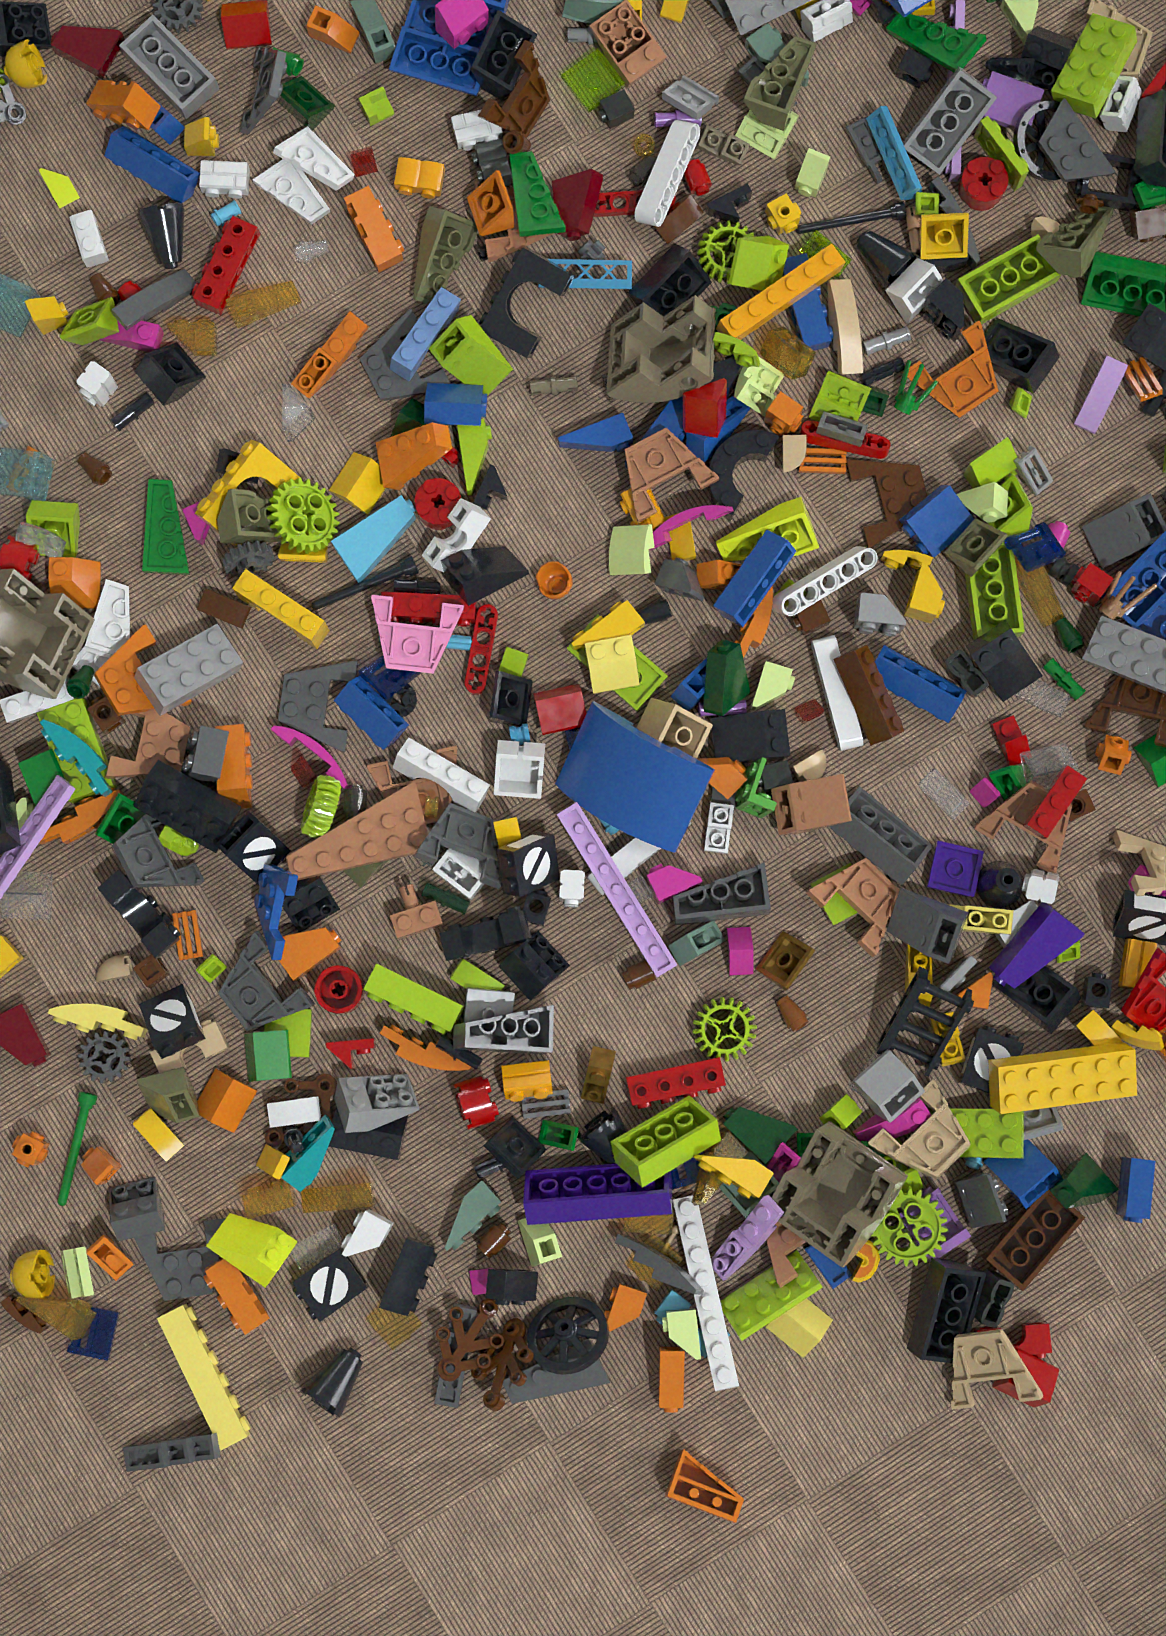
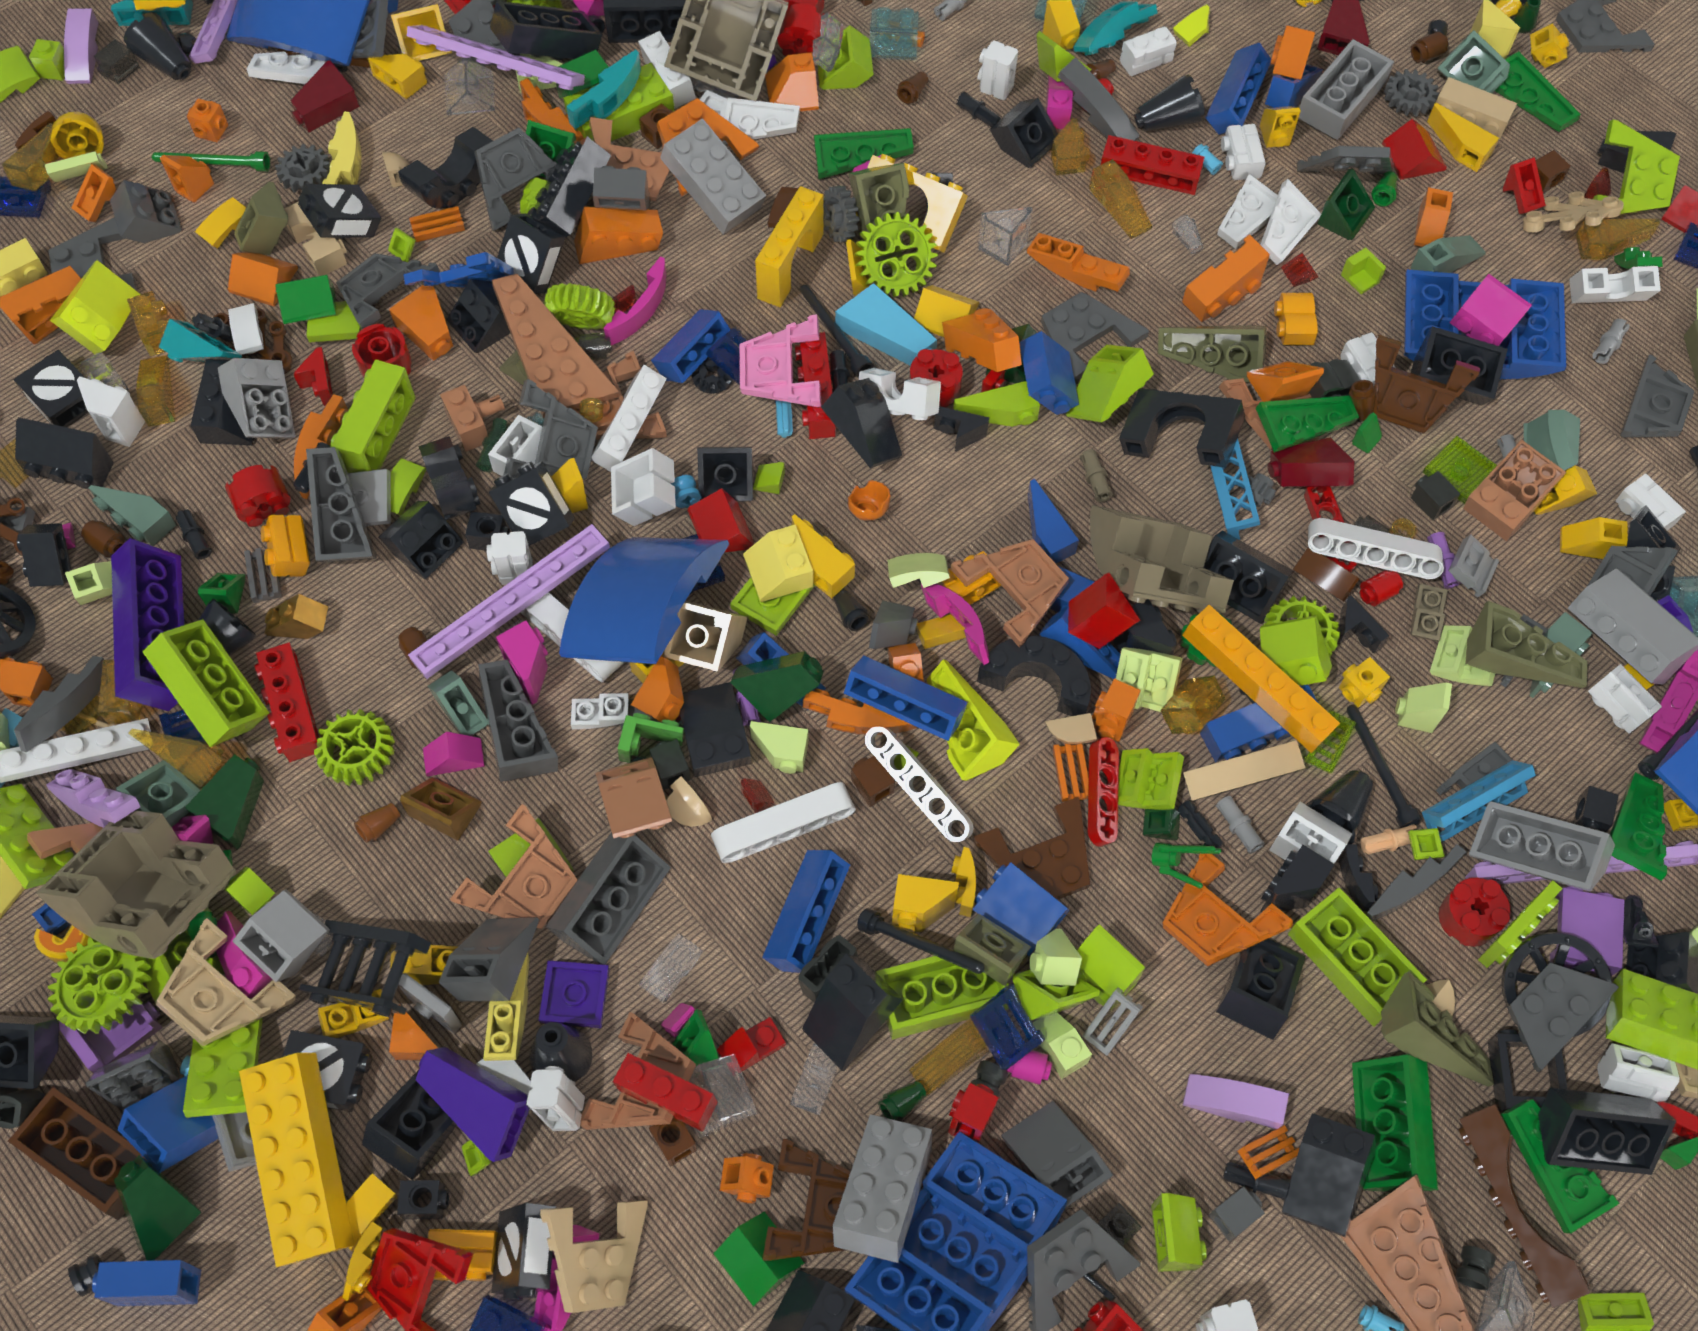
camera: 80 degrees right, 20 degrees down
(52, 267) = (1111, 24): none -> teal slope
(81, 682) = (685, 89): dark green cone -> none
(151, 971) = (392, 192): reddish brown brick -> none
(272, 1161) = (180, 313): yellow tile -> none
(306, 701) = (696, 290): dark grey wing -> none
(418, 341) = (1097, 324): medium blue arch -> none
(479, 649) = (780, 440): red beam -> none
(515, 1147) = (206, 541): black tile -> none
(546, 148) = (1368, 434): none -> green slope
(742, 1172) = (168, 766): yellow slope -> none
(743, 353) = (1179, 624): lime slope -> none
(842, 429) = (1110, 779): flat silver tile -> none
(869, 695) = (782, 851): reddish brown brick -> none
(877, 613) = (885, 848): light grey slope -> none
(930, 635) = (872, 923): none -> black piece
(943, 235) = (1390, 860): yellow slope -> none
(1020, 402) = (1200, 999): lime slope -> none
(1048, 509) = (1062, 1044): none -> yellowish green slope
(1064, 679) = (843, 1103): green pin -> none
(1089, 204) = (1488, 1046): reddish brown plate -> none
(1112, 606) = (948, 1143): medium nougat plant -> none
(1119, 1235) = (82, 1275): none -> black wheel

